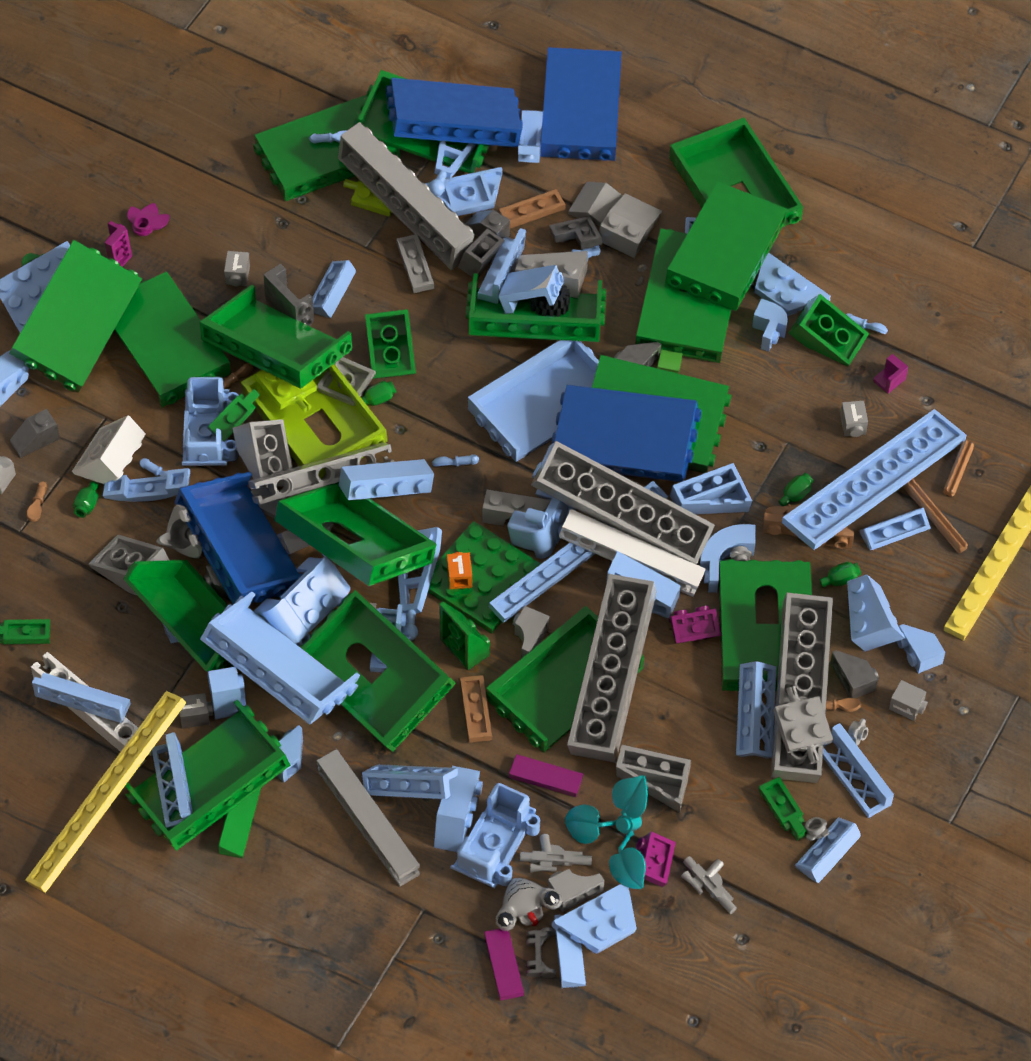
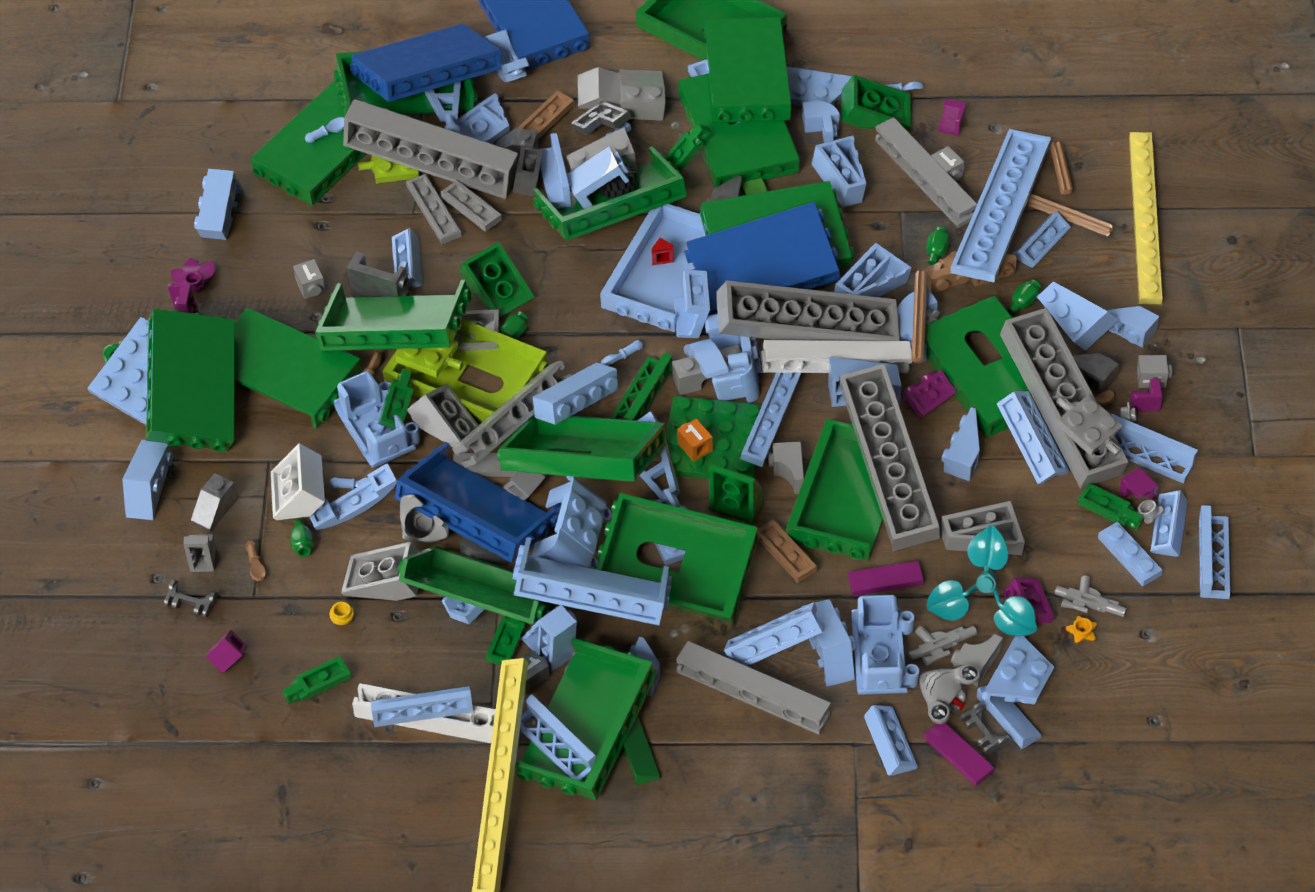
camera: 25 degrees left, 5 degrees down
(77, 582) = (341, 613): none -> yellow plate
(187, 677) = (505, 640): none -> green hinge
(202, 164) = (217, 204): none -> light blue wedge
(383, 251) = (433, 209): none -> light grey tile
(451, 508) = (649, 391): none -> green fence
(455, 922) = (890, 740): none -> light blue slope
(514, 501) = (708, 357): none -> light blue slope
(535, 444) = (694, 307): none -> light blue panel
(546, 383) = (662, 252): none -> red slope
(627, 297) = (687, 147): none -> green hinge
(688, 694) = (963, 453): none -> light blue slope
(688, 901) = (1082, 623): none -> light orange plate
(727, 550) = (919, 317): none -> medium nougat axle
(754, 377) = (839, 164): none -> light blue wedge
(774, 859) = (1130, 554): none -> light blue plate
(820, 800) = (1138, 484): none -> magenta panel
(830, 414) = (925, 172): none -> light grey piece
(842, 889) = (1208, 555): none -> light blue fence
(886, 724) = (1147, 400): none -> magenta panel

